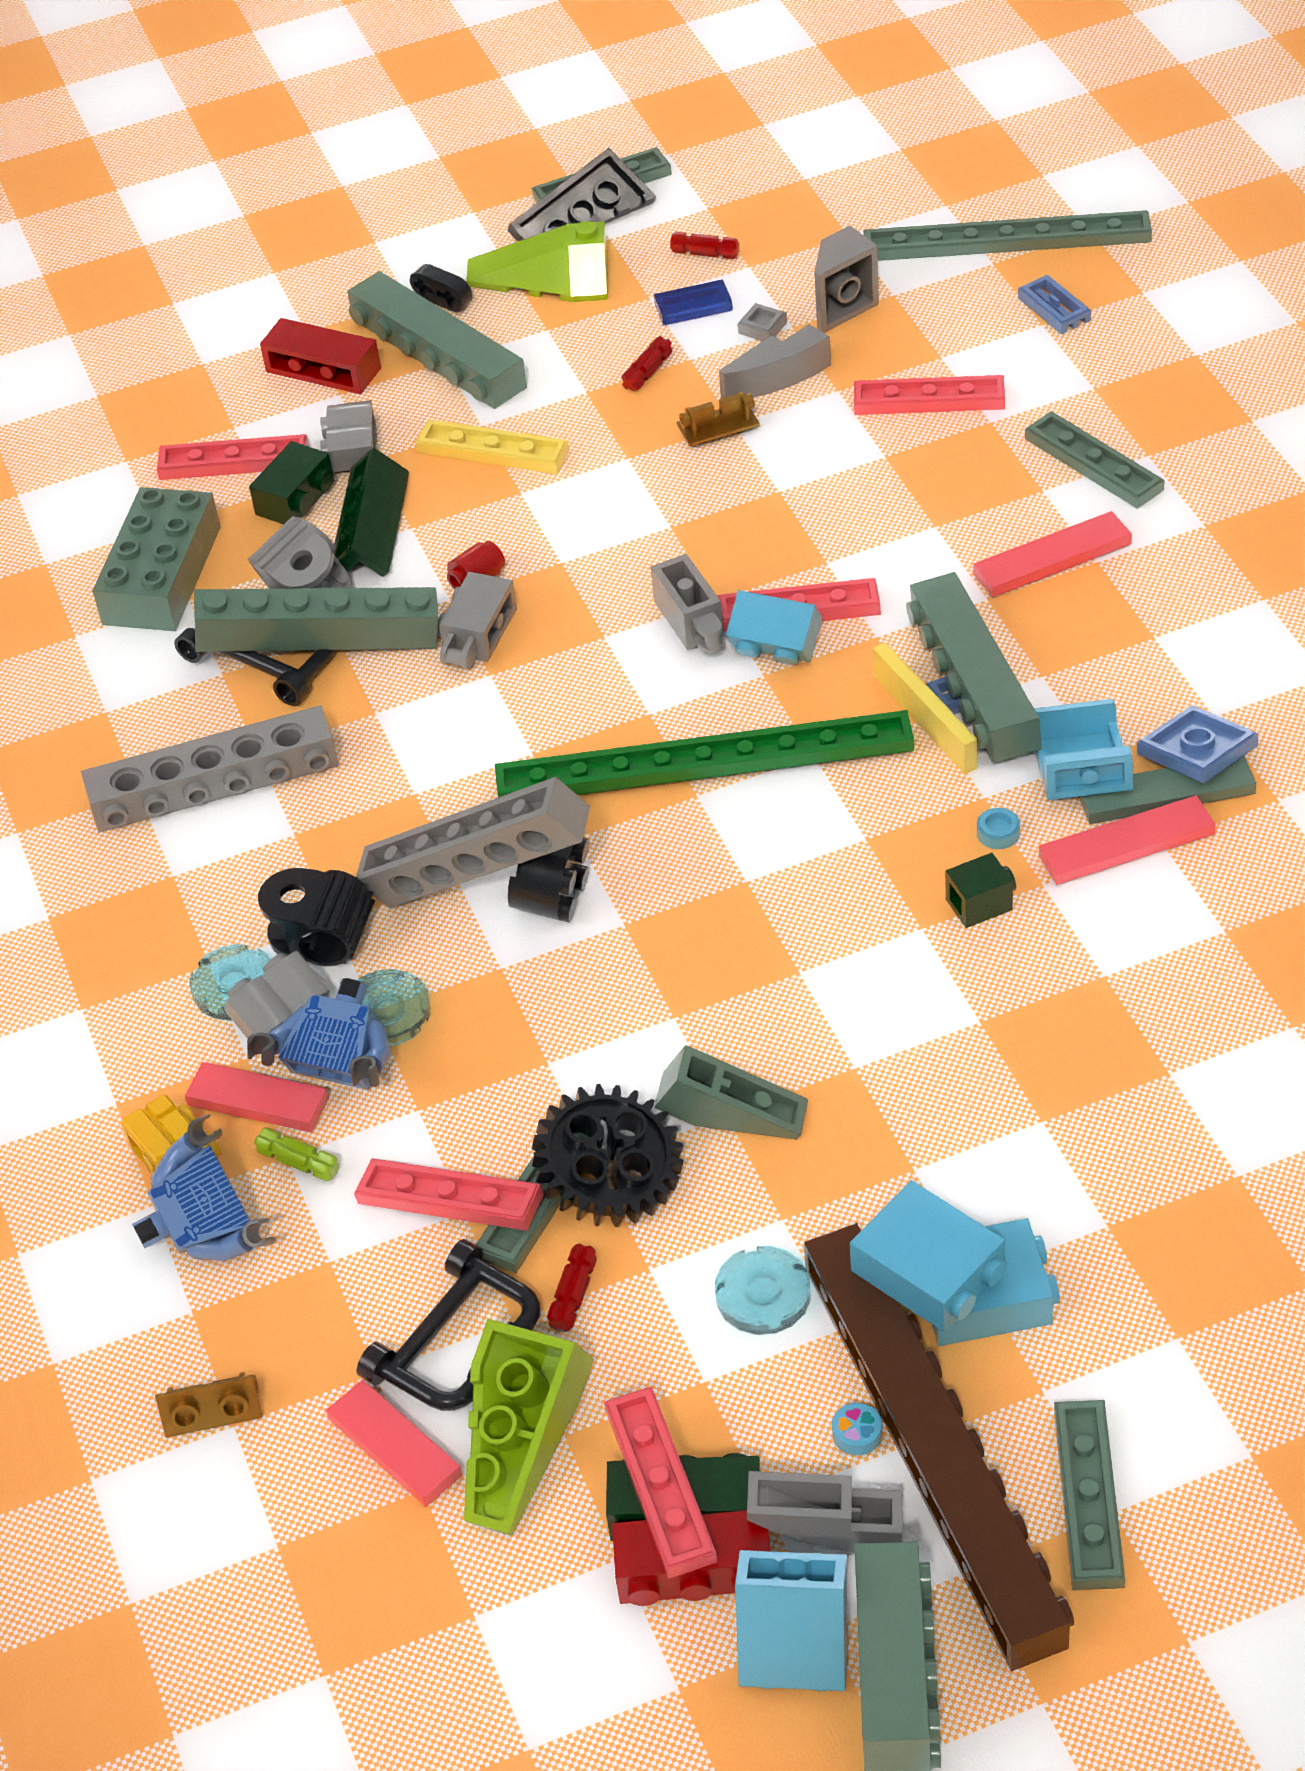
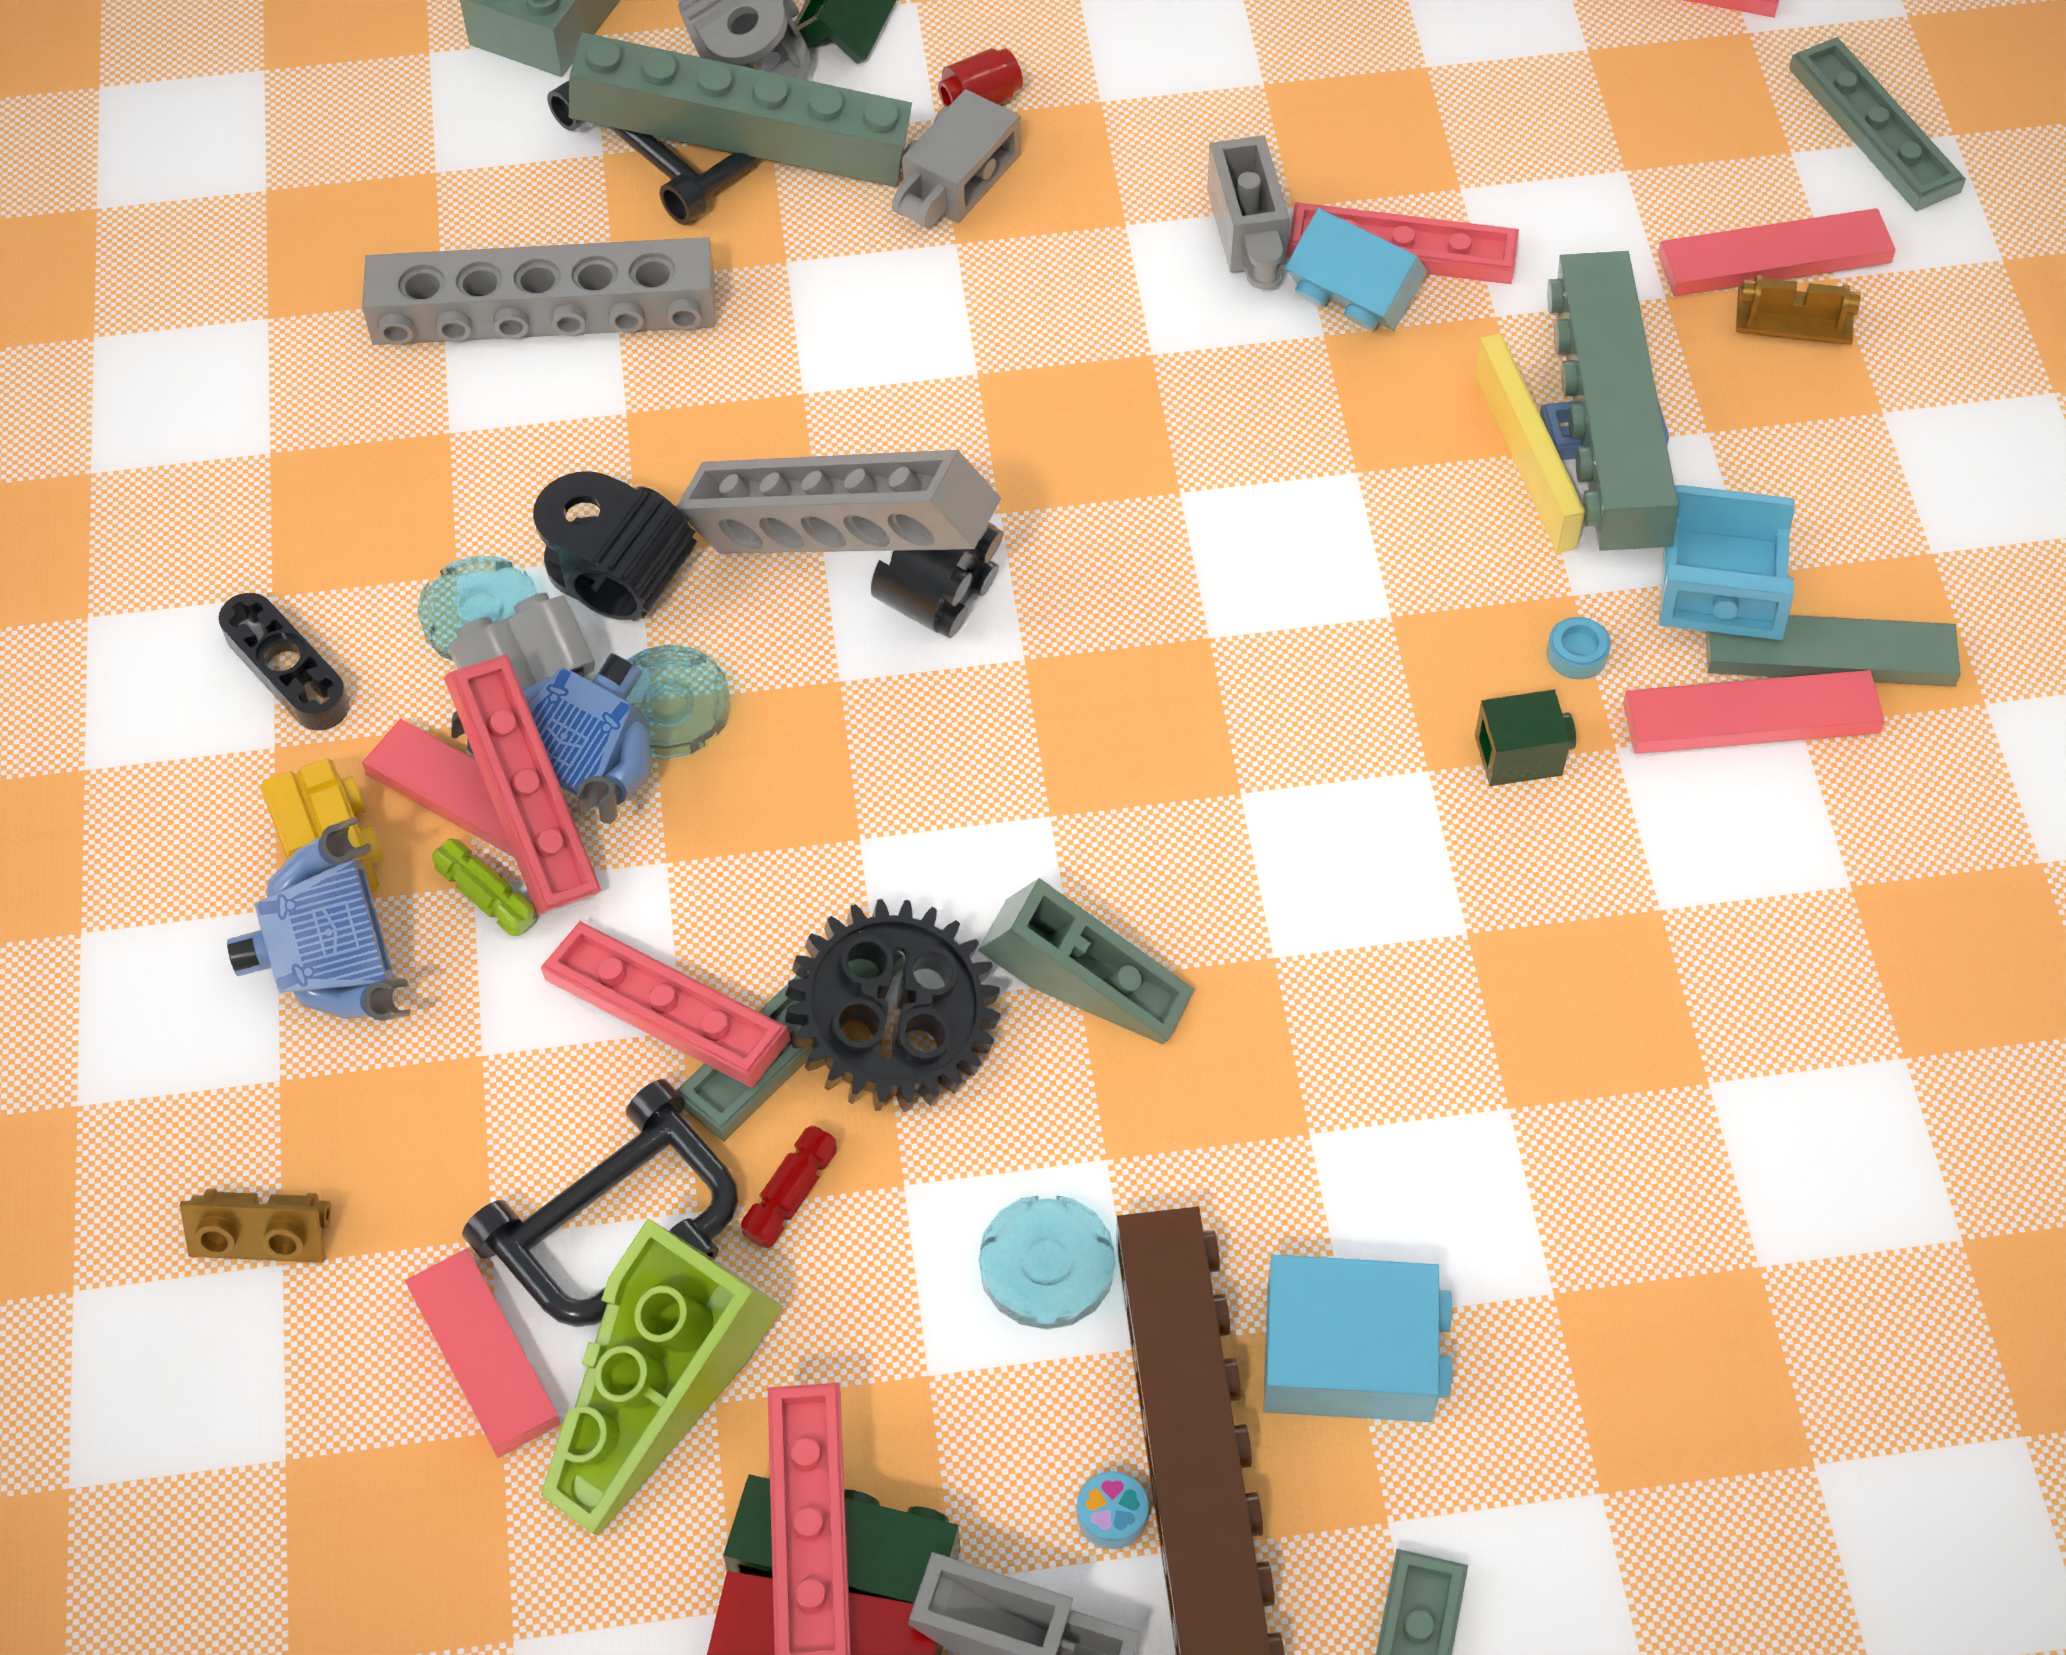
camera: 10 degrees right, 10 degrees up
(114, 1061) = (286, 684): none -> black beam
(308, 1076) = (522, 784): none -> coral tile
(714, 755) = (1206, 440): green plate -> none
(928, 1256) = (1279, 1292): medium azure brick -> none
(1064, 588) = (1780, 310): none -> pearl gold hinge
(1197, 744) = (1895, 593): medium blue tile -> none

